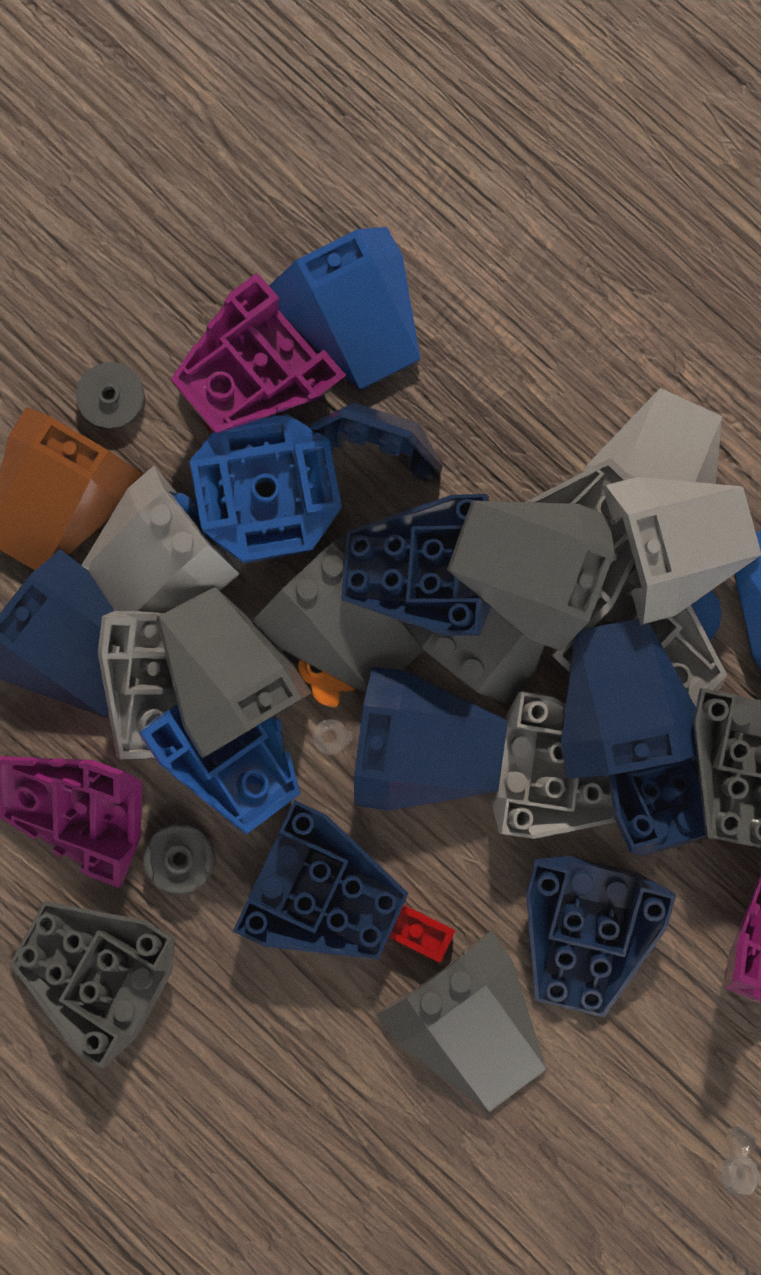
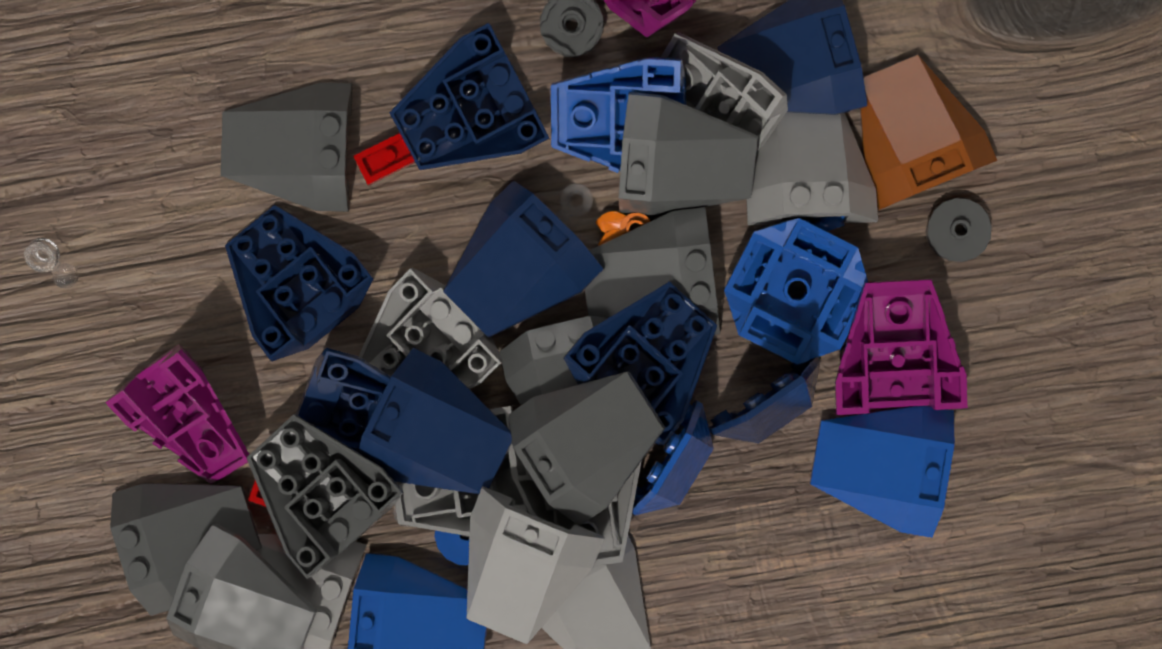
camera: 120 degrees right, 5 degrees up
(481, 472) = (680, 467): none -> blue wedge

